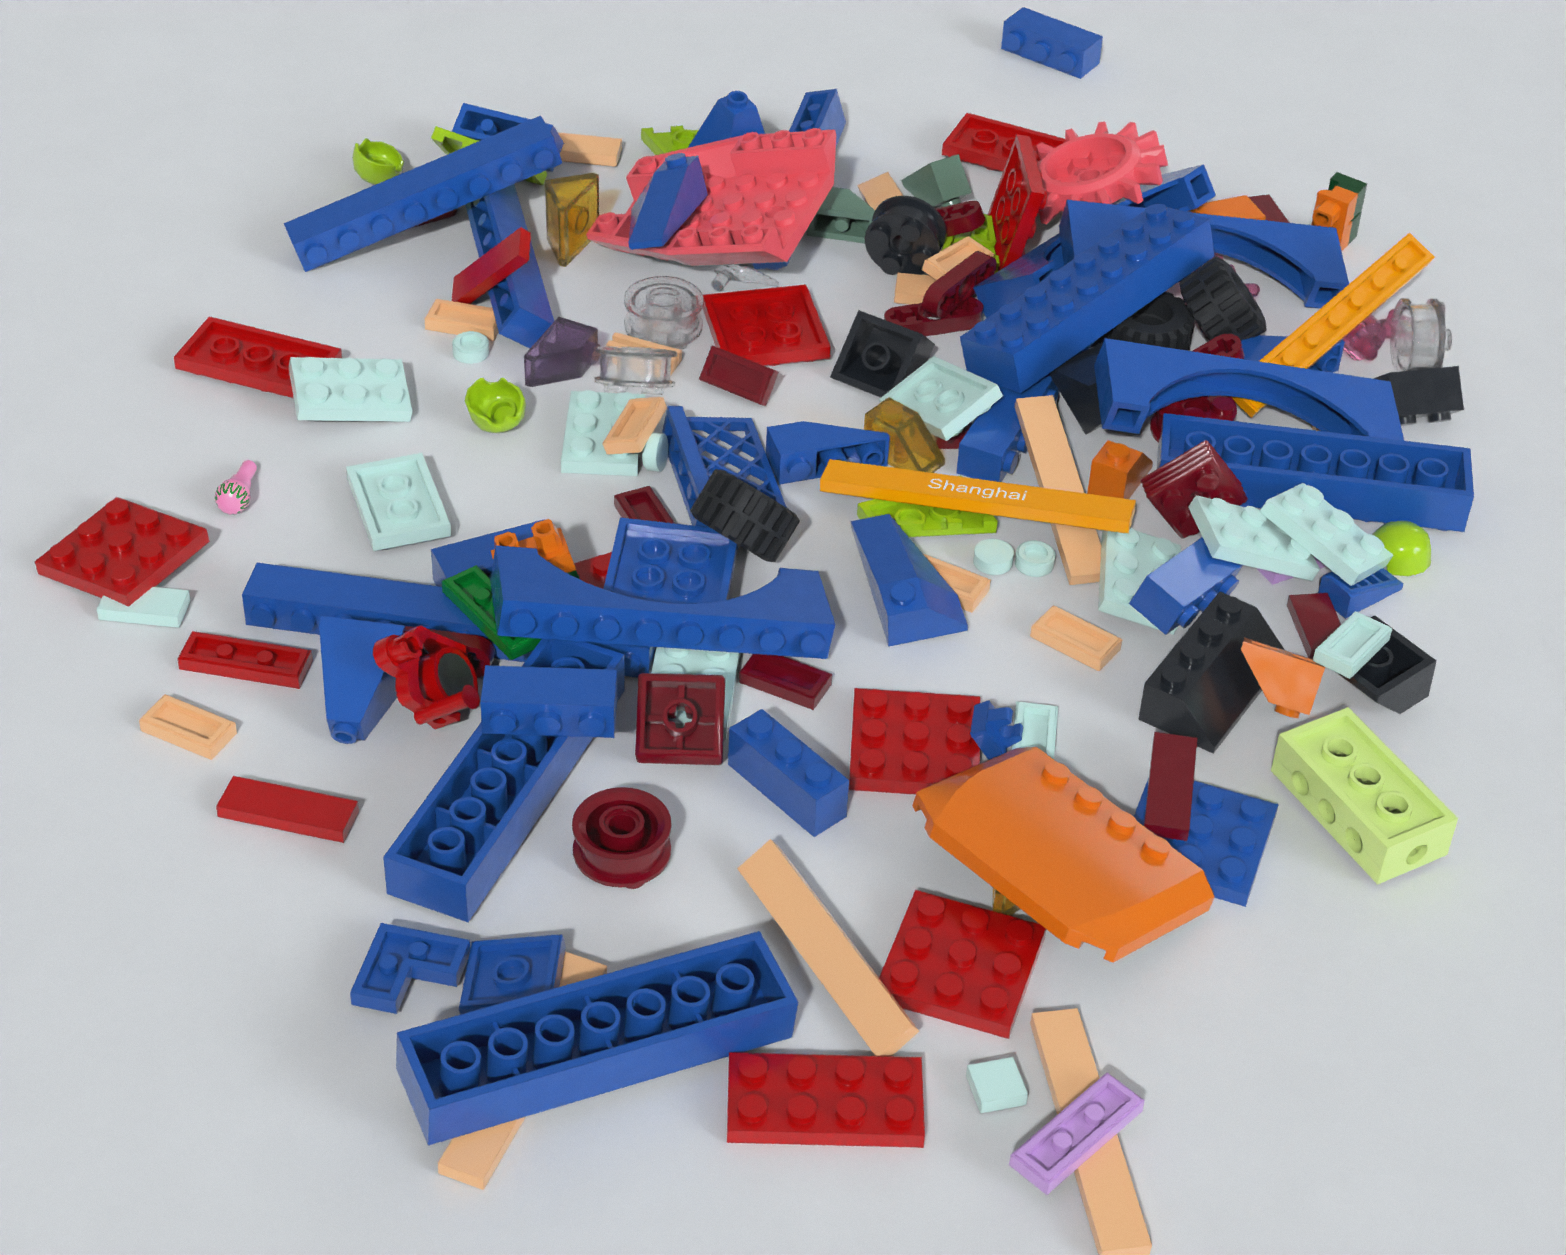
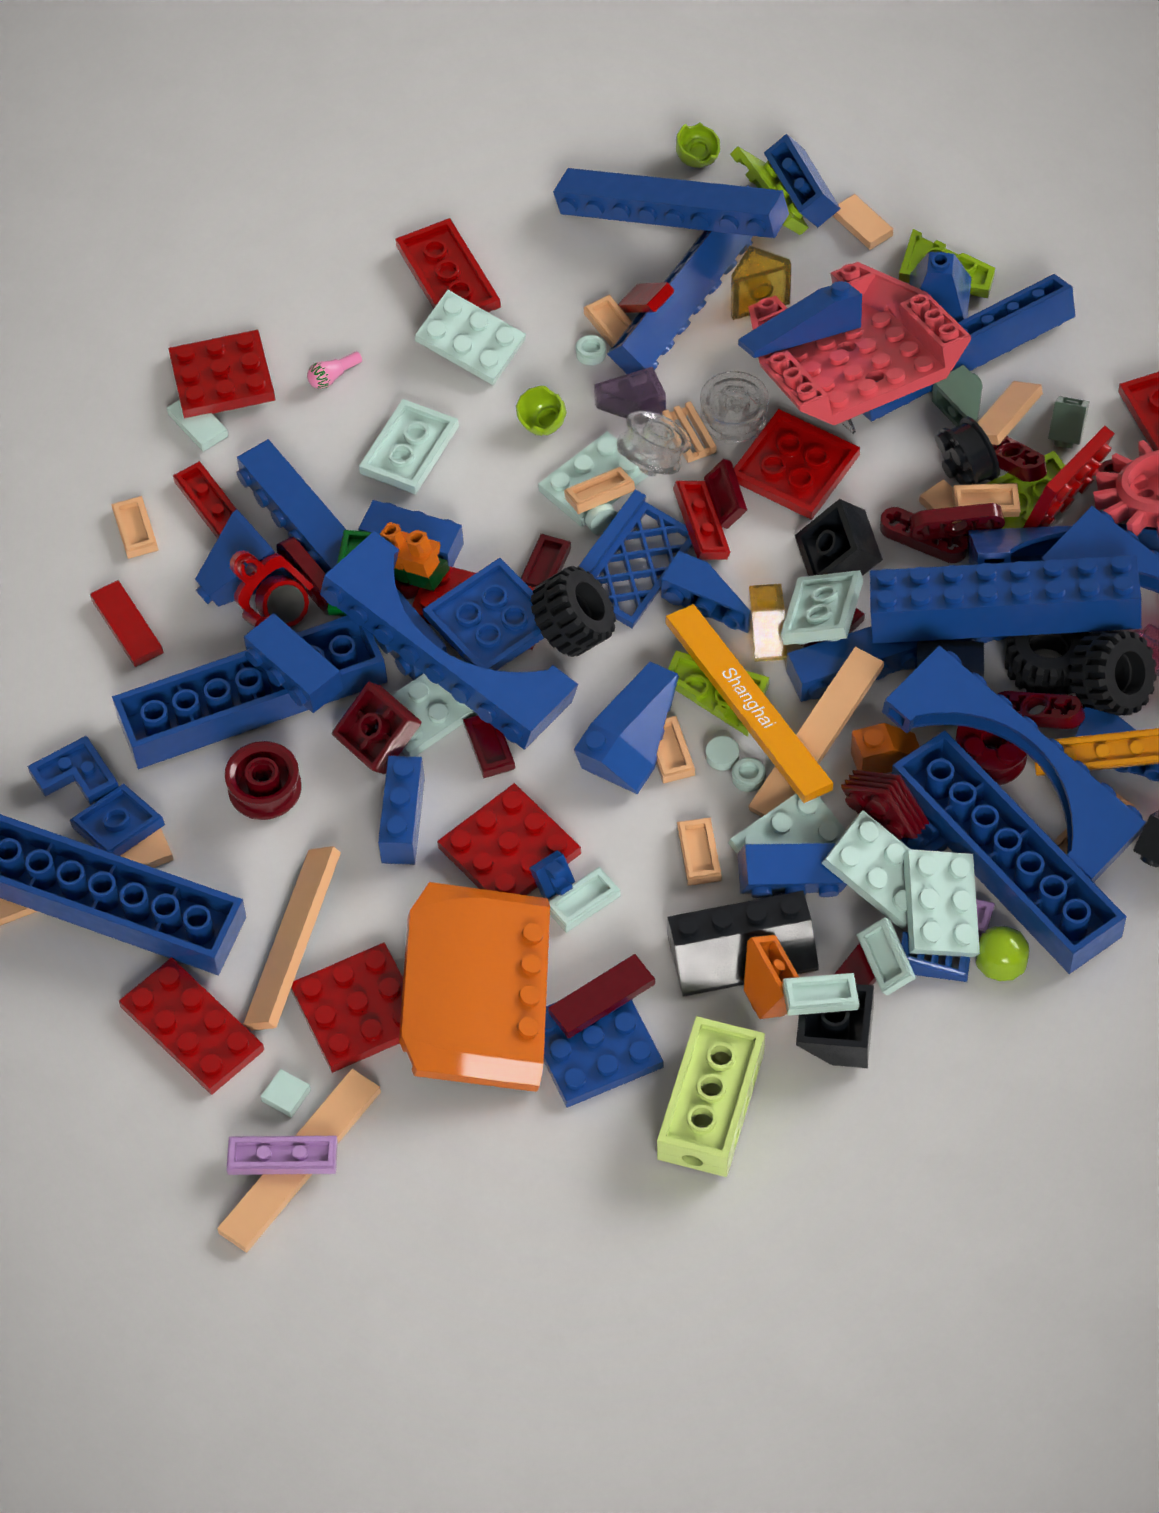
camera: 50 degrees right, 15 degrees up
(740, 404) = (701, 520): none -> red tile
(1335, 597) = (886, 956): none -> light aqua tile

